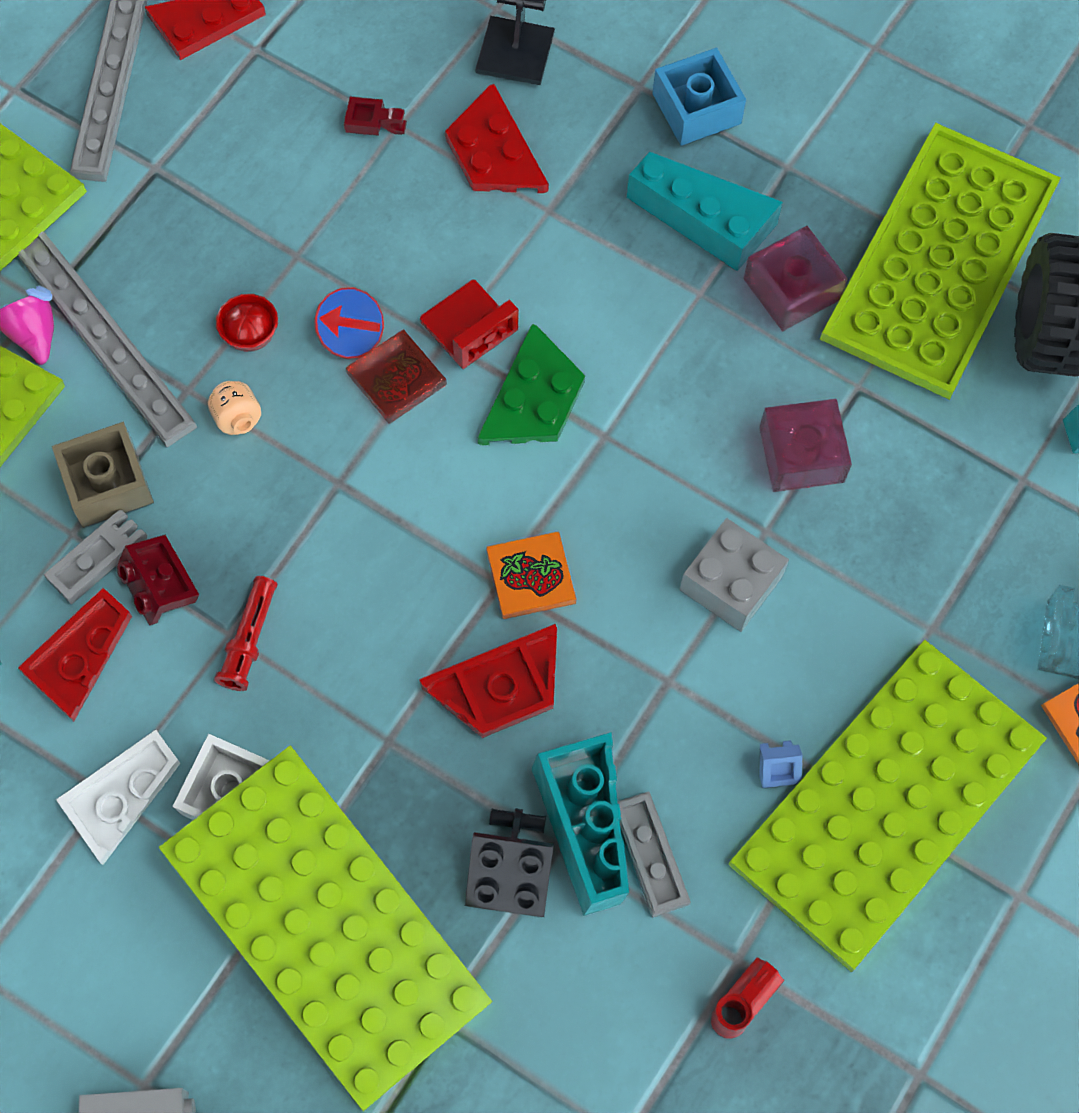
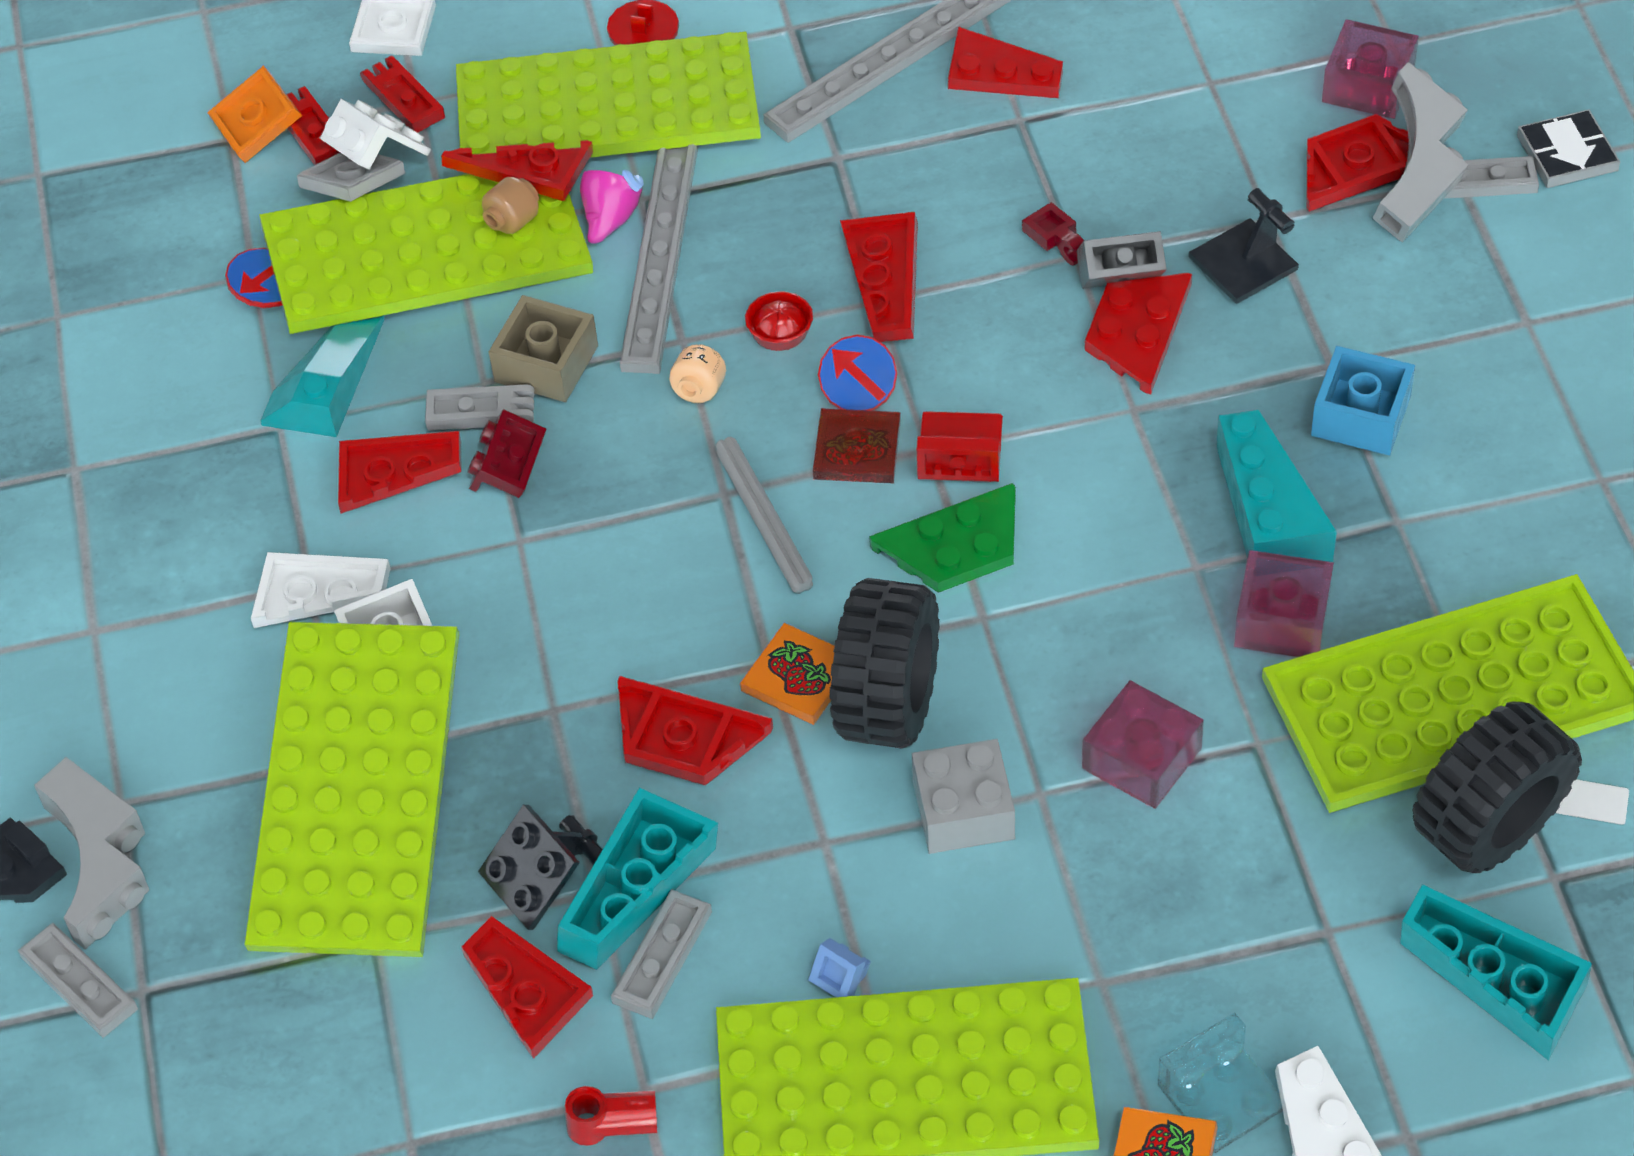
camera: 50 degrees right, 15 degrees down
(241, 652) = (513, 553): red pin -> none
(283, 229) = (885, 269): none -> red wing
(386, 477) = (764, 515): none -> light grey axle
(445, 106) = (1120, 259): none -> dark grey brick
(588, 959) = (525, 984): none -> red wing
(615, 524) = (884, 663): none -> black tyre

